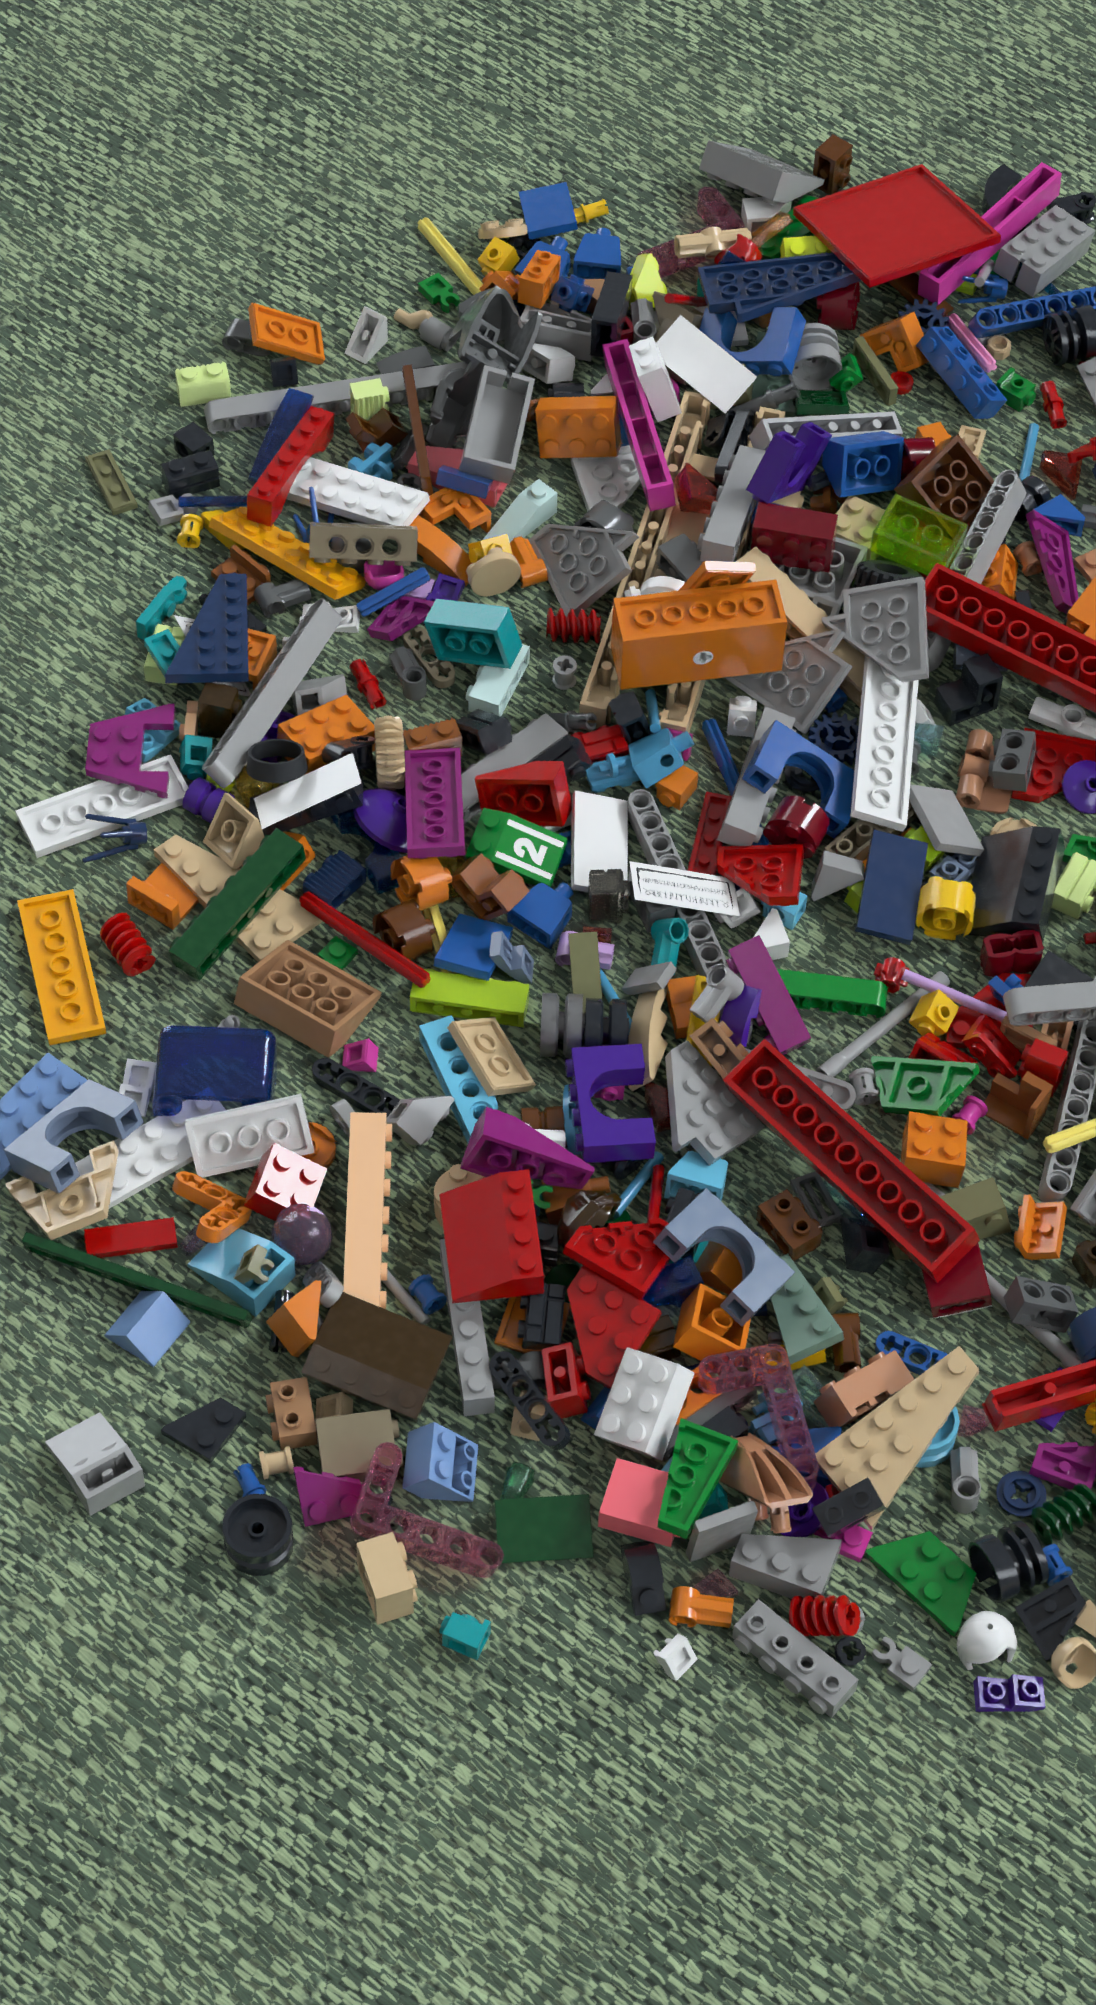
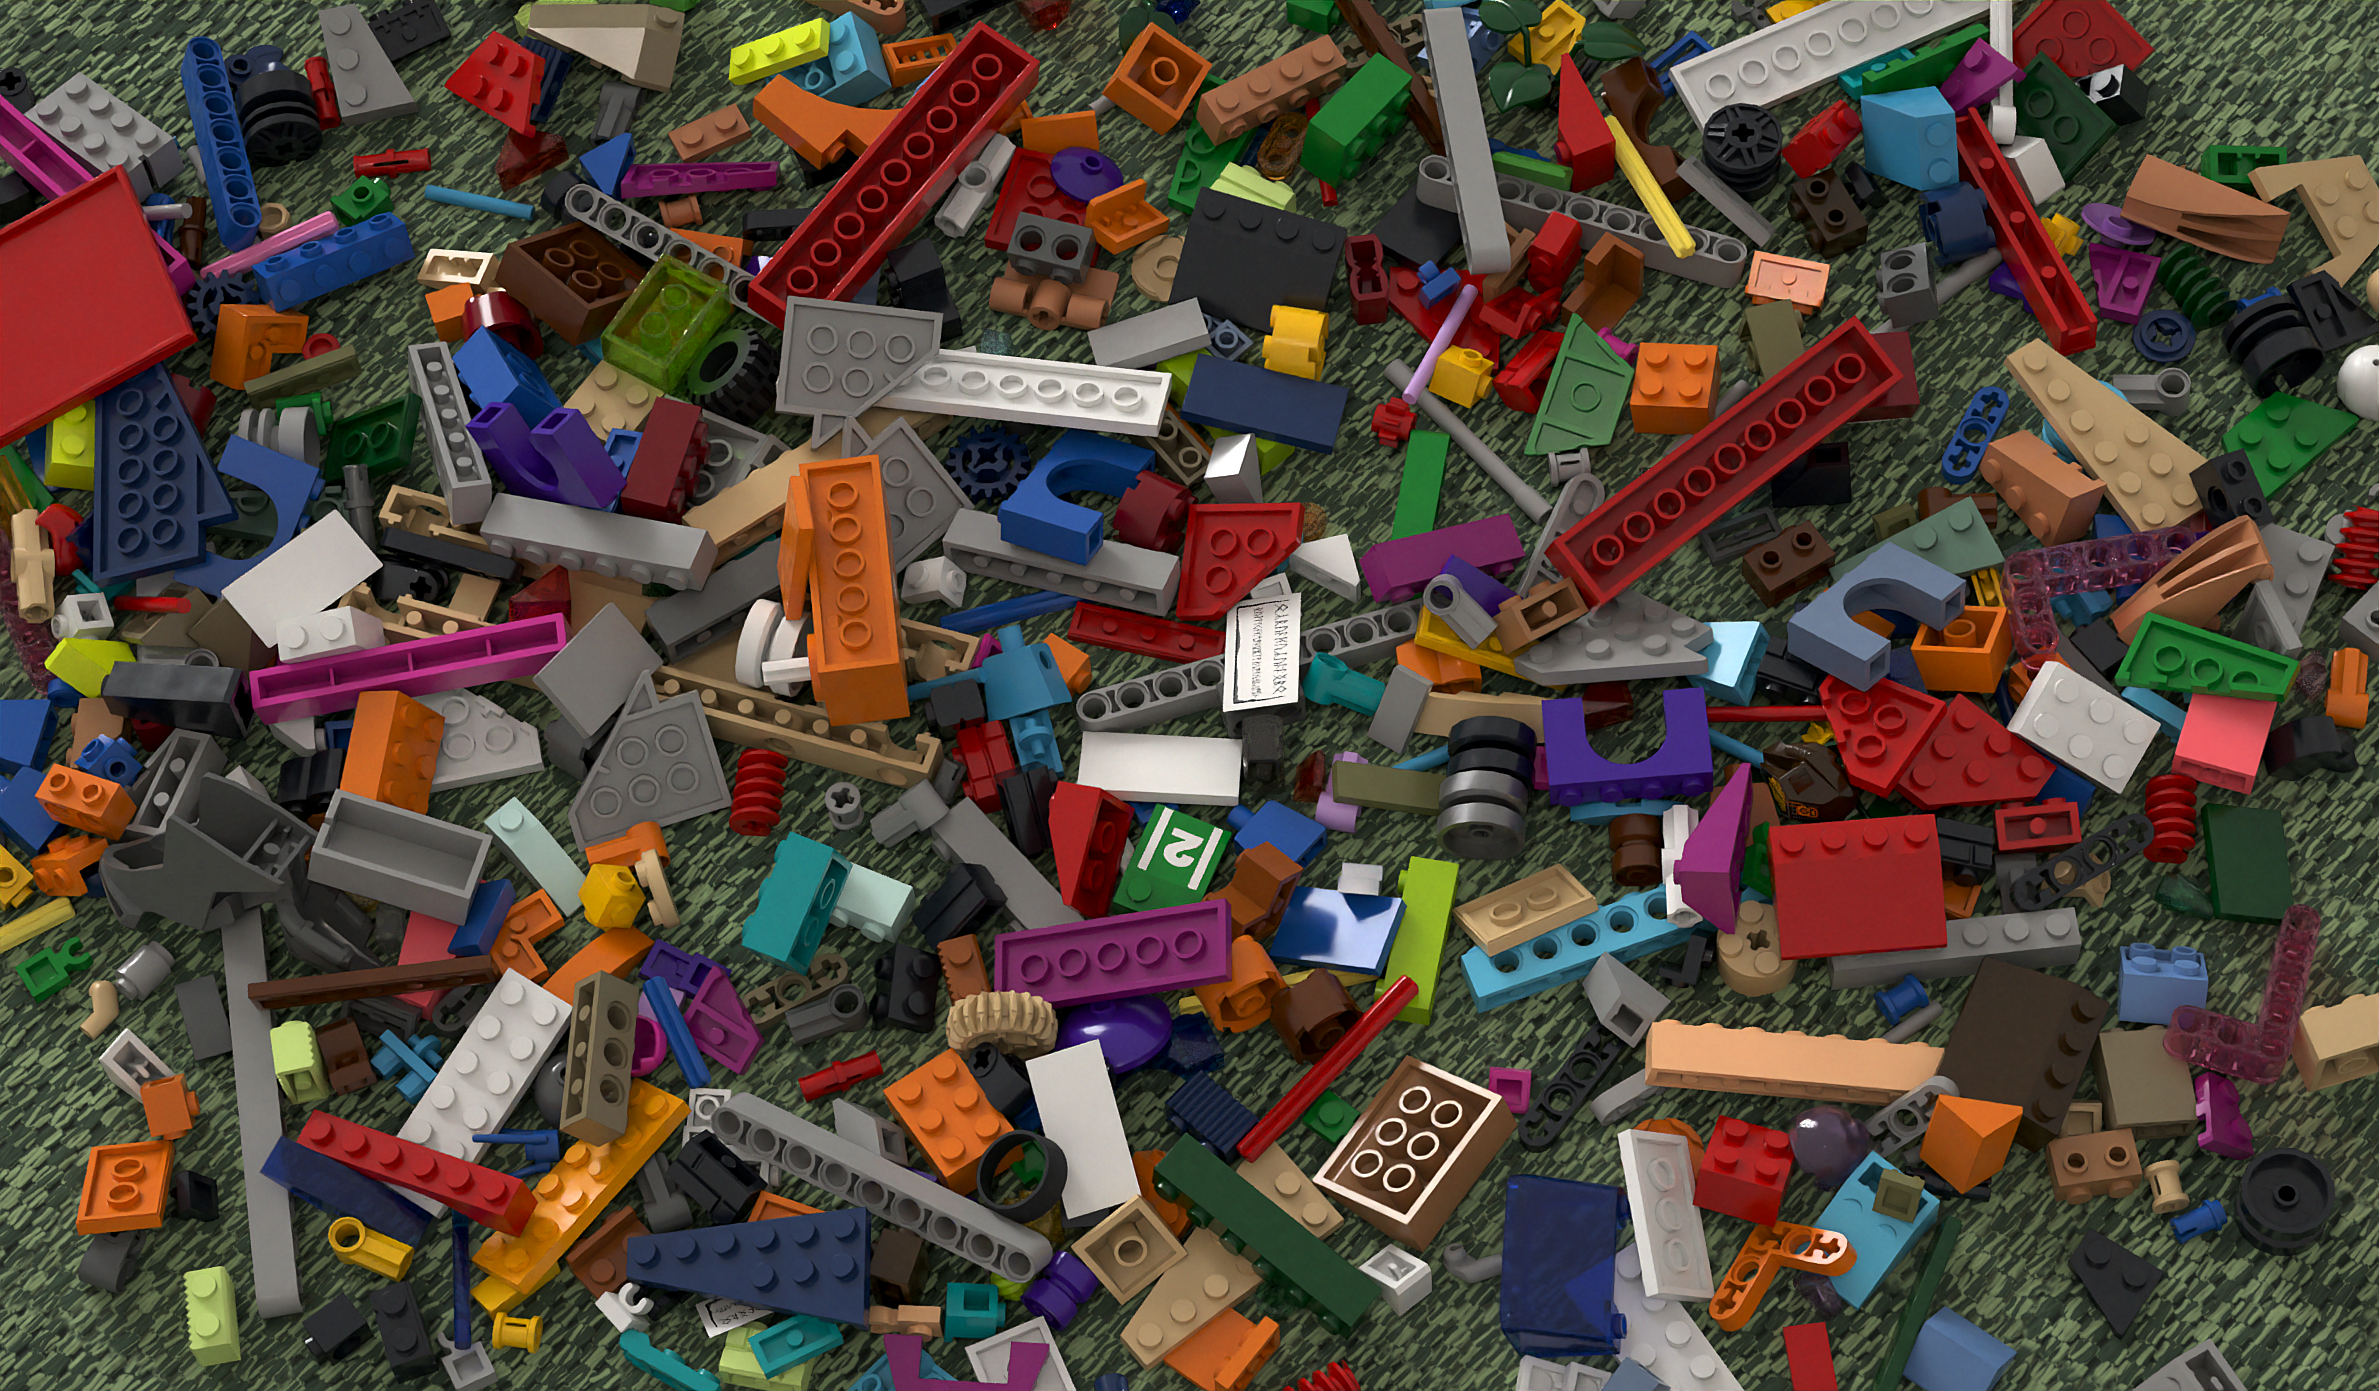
camera: 80 degrees left, 5 degrees up
(200, 580) = (621, 1310): none -> white tile
(213, 989) = (1400, 1276): none -> white slope
(246, 454) = (372, 1250): none -> yellow piece
(284, 611) = (716, 1179): none -> black brick
(342, 350) = (169, 1106): none -> orange brick
(421, 711) = (905, 989): none -> black bracket
(448, 1153) = (1698, 955): none -> black bracket
(554, 702) = (914, 810): none -> light grey piece
(580, 1474) = (2171, 813): none -> red piece
(636, 508) = (597, 670): none -> light grey tile
(683, 270) = (82, 618): none -> white brick
(808, 929) = (1314, 522): none -> clear orange tile
(970, 308) = (193, 232): none -> reddish brown axle
(1048, 803) = (1124, 218): none -> orange bracket

